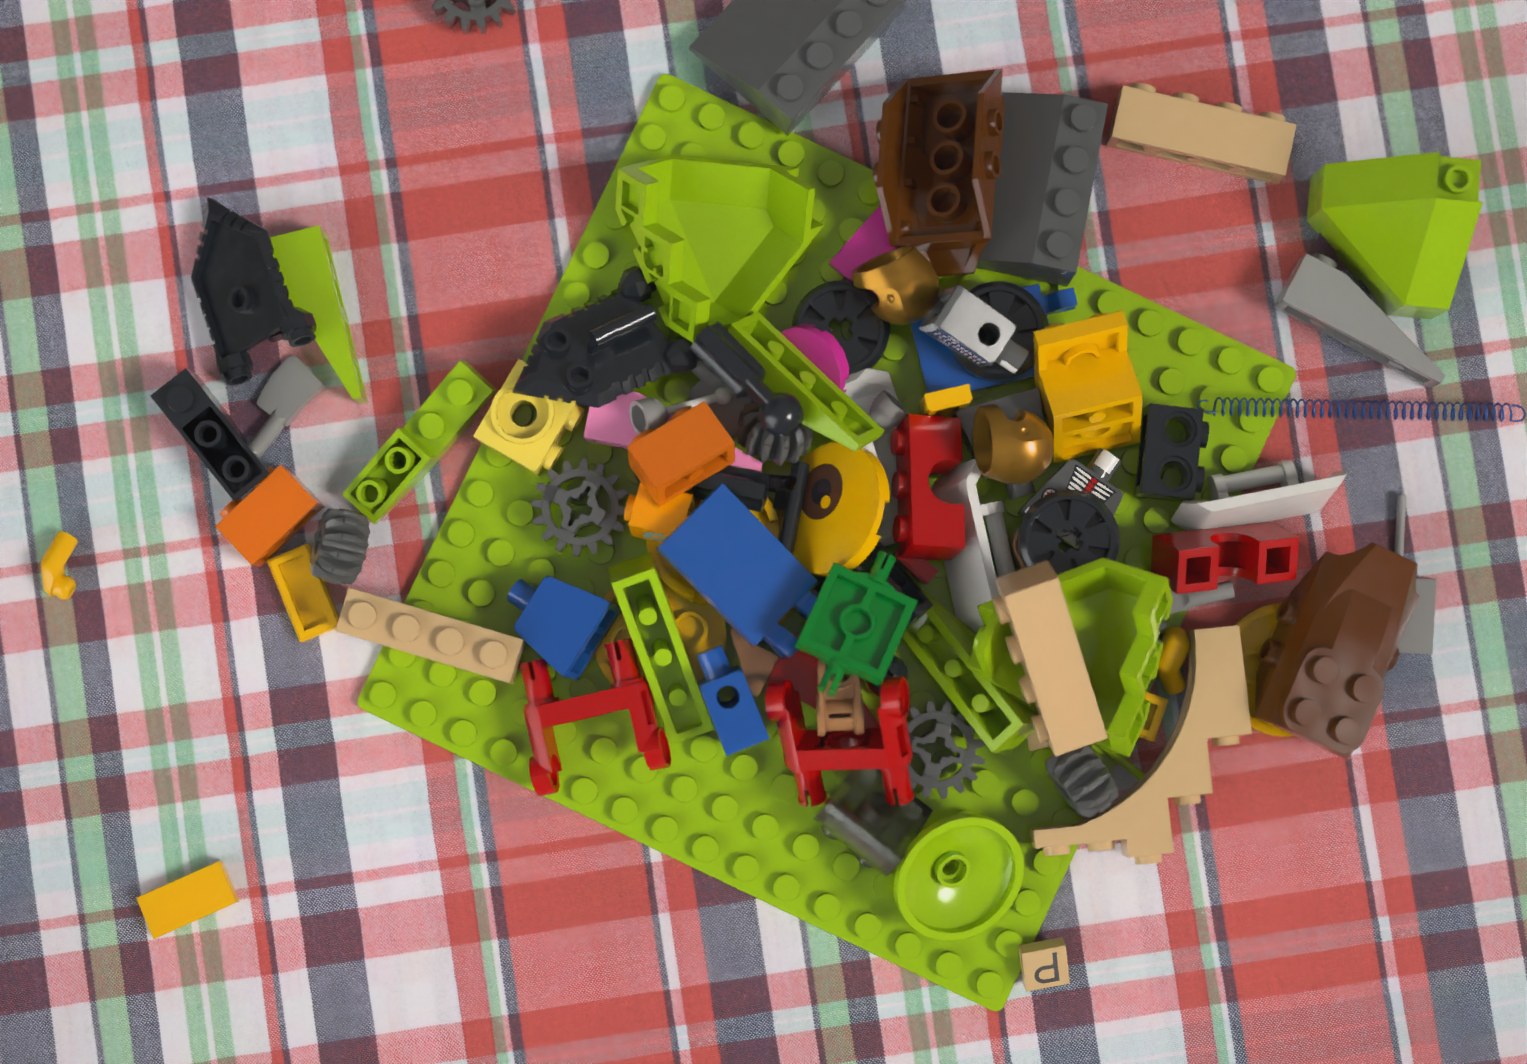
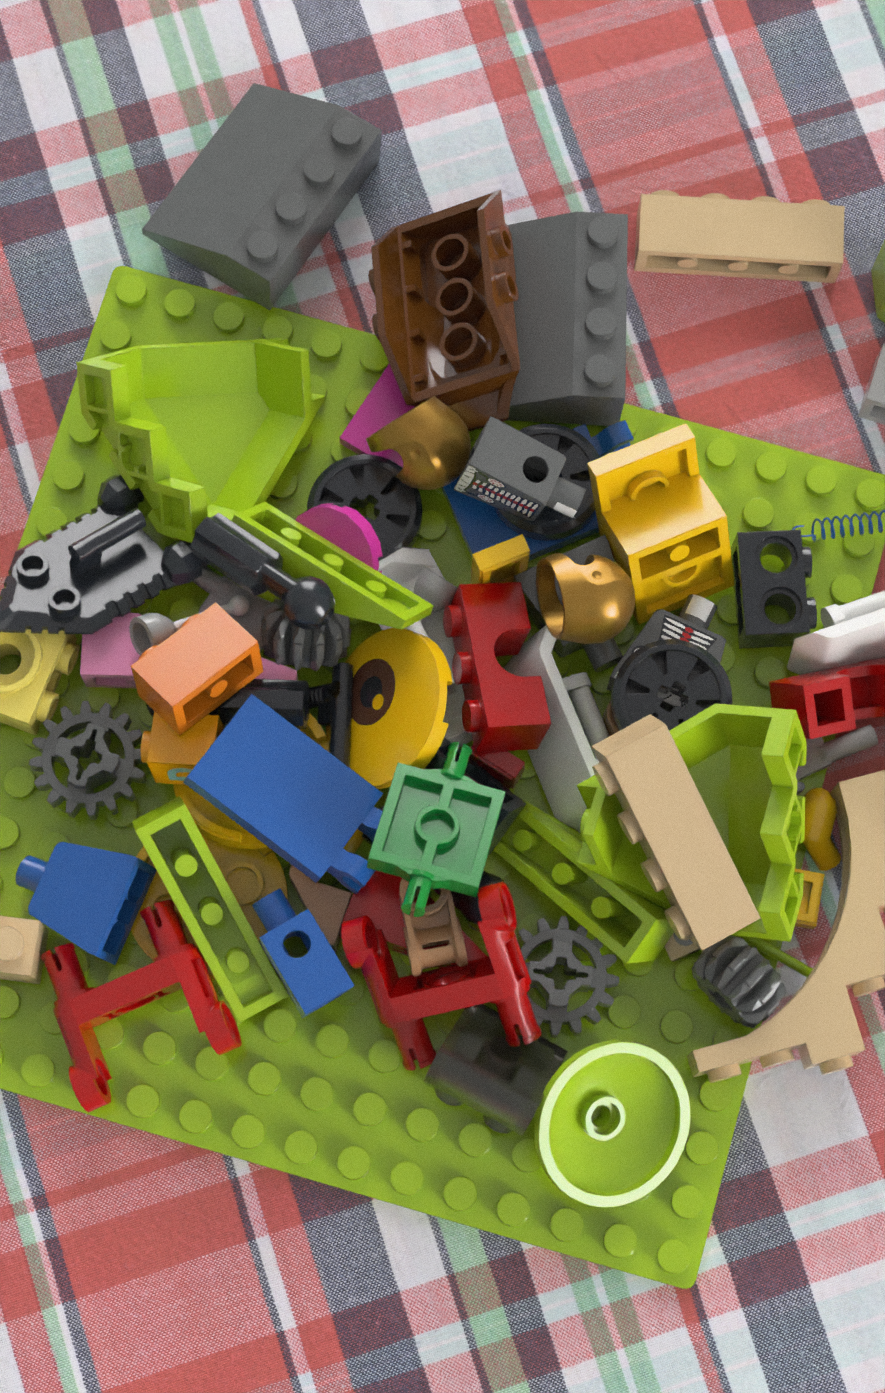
camera: 10 degrees left, 10 degrees down
(1044, 964) = (735, 1218): tan tile -> none

